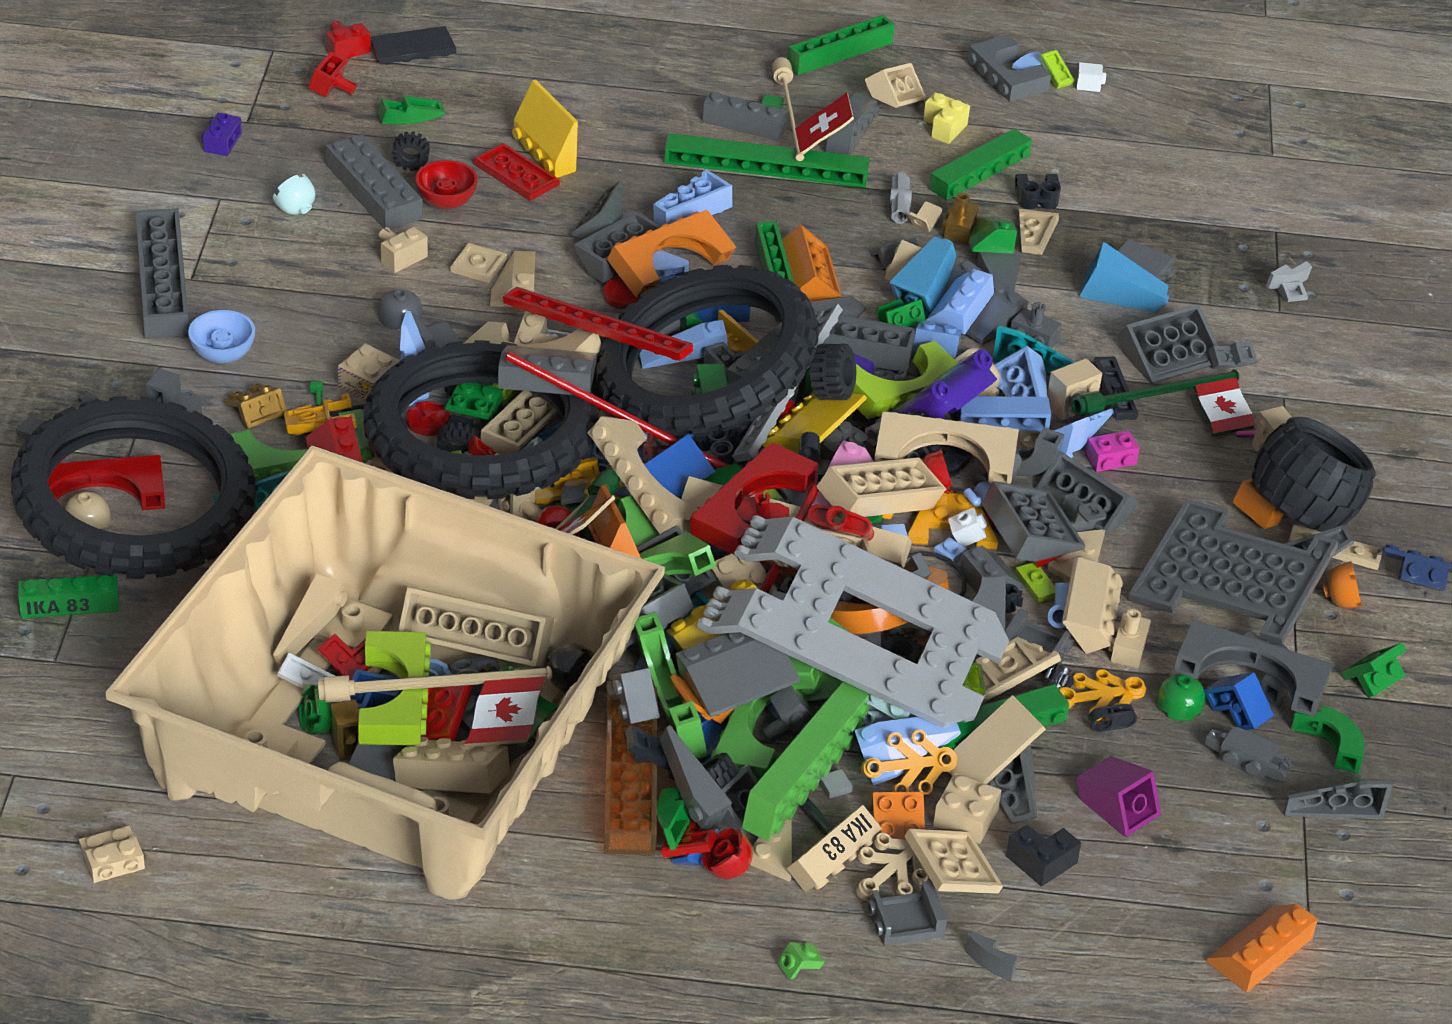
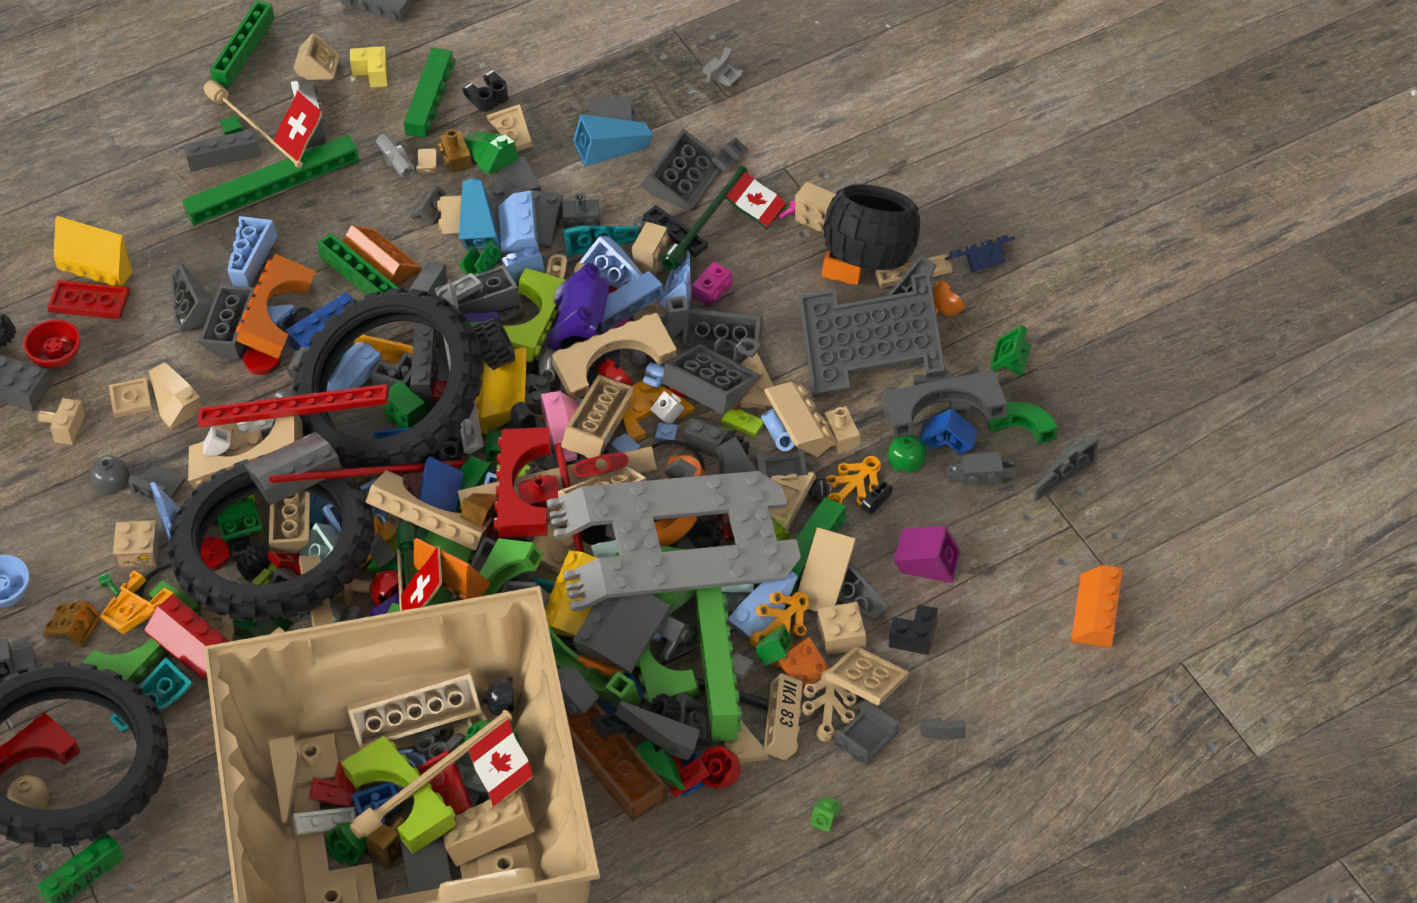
camera: 30 degrees left, 10 degrees up
(509, 323) = (216, 442): none -> white brick
(689, 496) = (478, 508): none -> pearl gold slope
(855, 323) = (466, 286): none -> light grey plate
(881, 779) = (774, 645): none -> green slope

